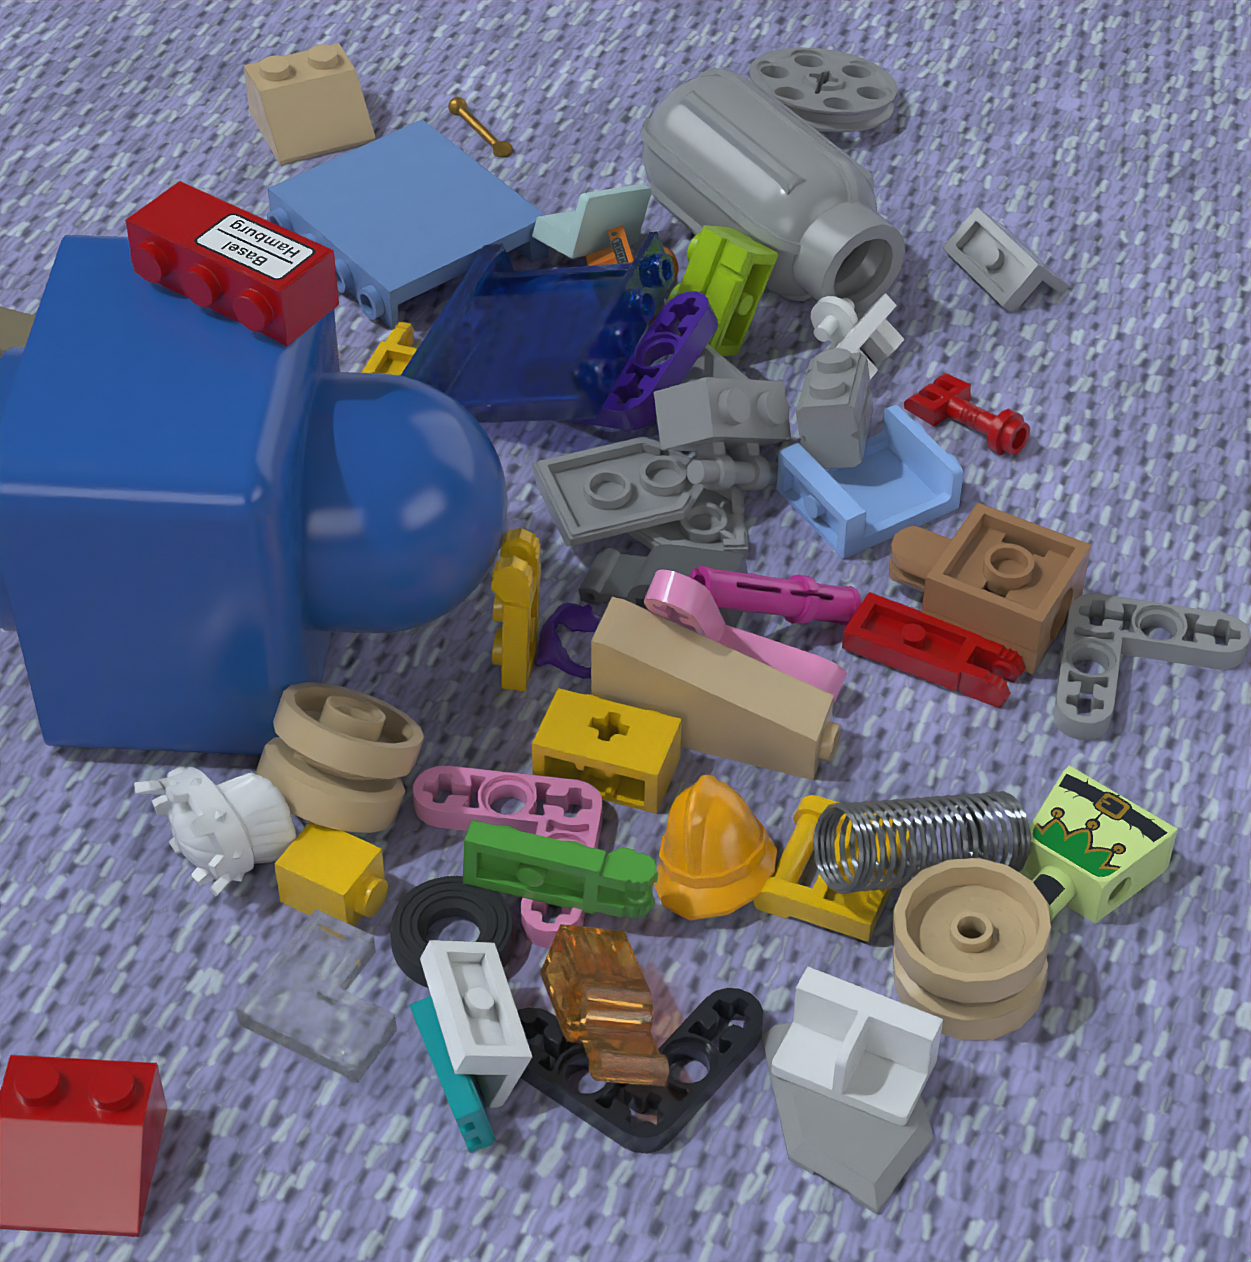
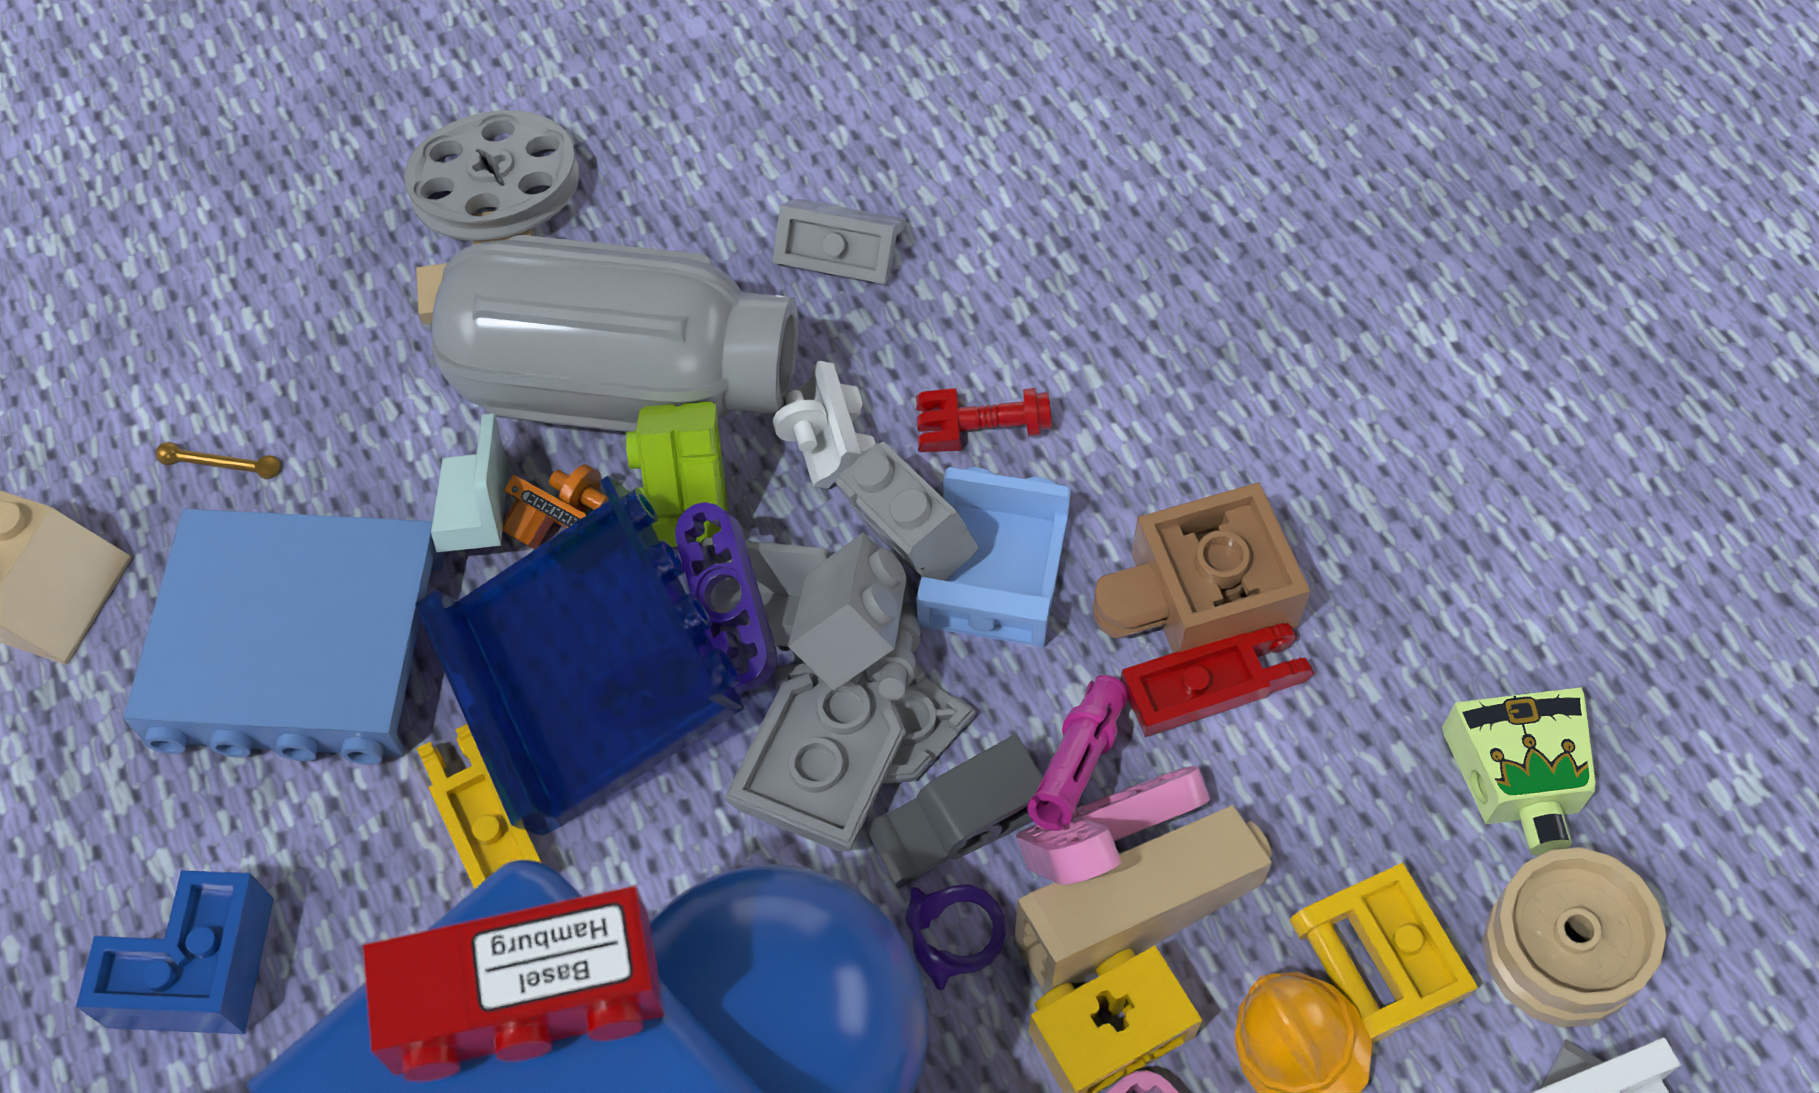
camera: 45 degrees left, 15 degrees up
(517, 607) = (941, 976): yellow hinge -> none
(972, 837) = (1464, 843): dark grey piece -> none
(1108, 642) = (1320, 552): light grey beam -> none

